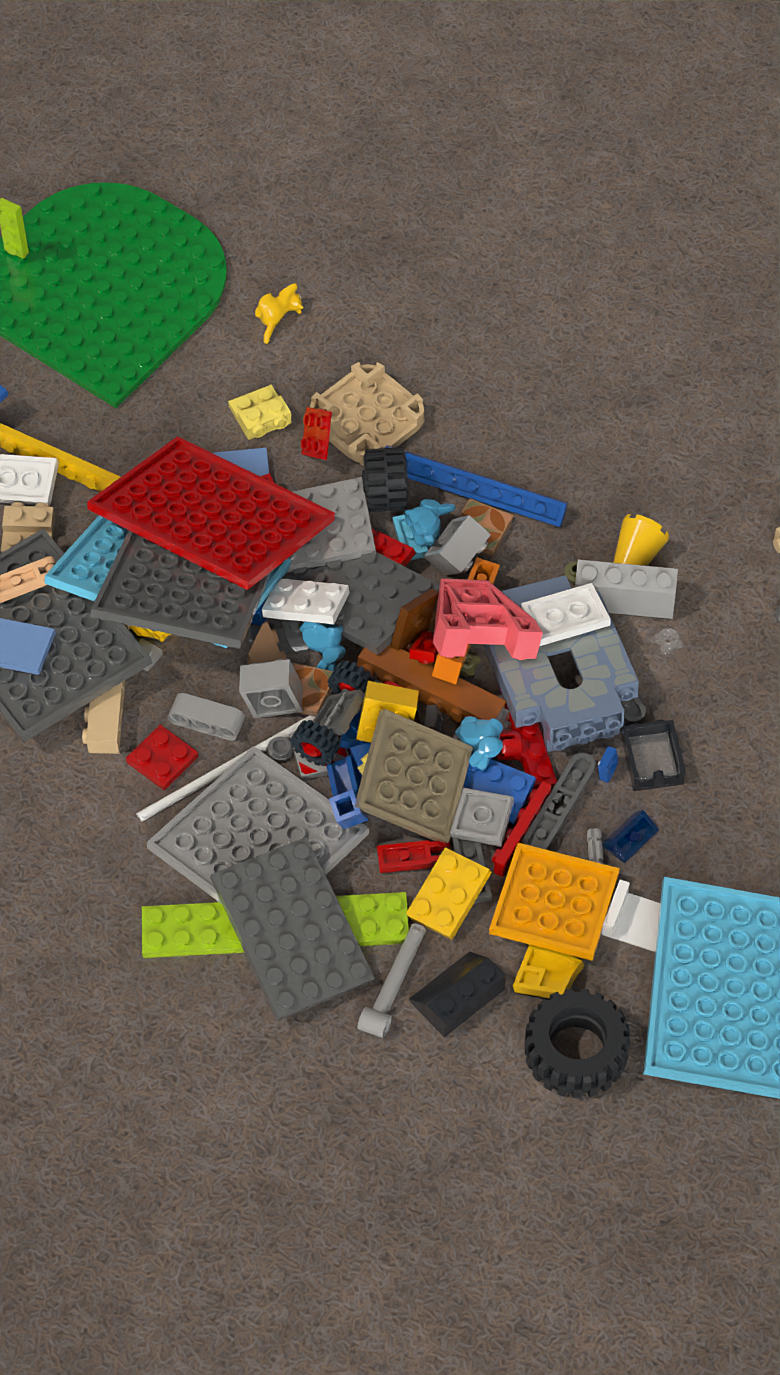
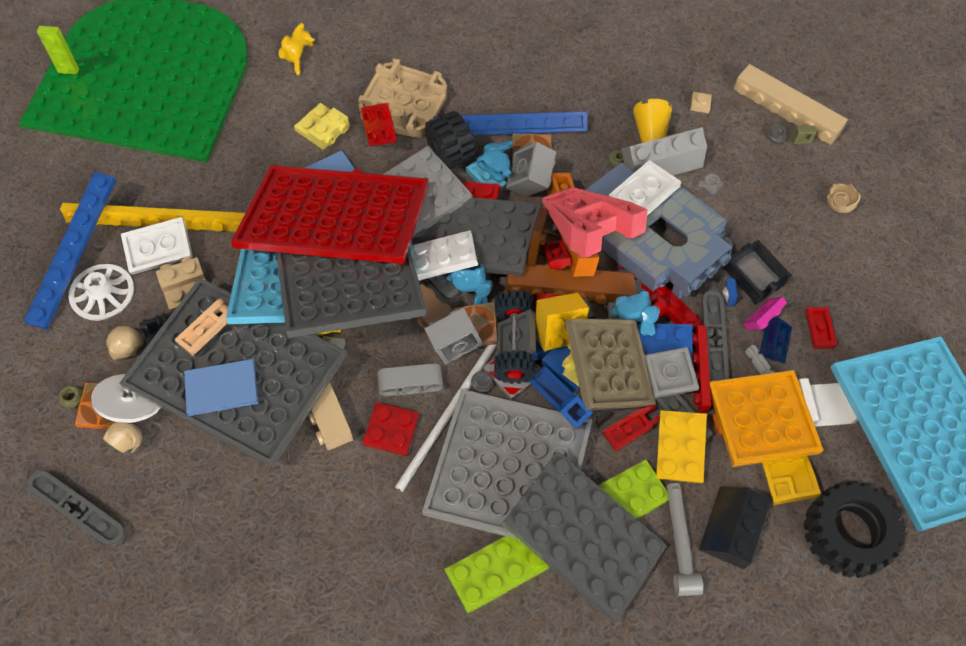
camera: 30 degrees left, 5 degrees up
(643, 800) = (765, 313): none -> dark pink plate
(687, 842) = (820, 328): none -> red plate
(720, 543) = (700, 102): none -> tan plate

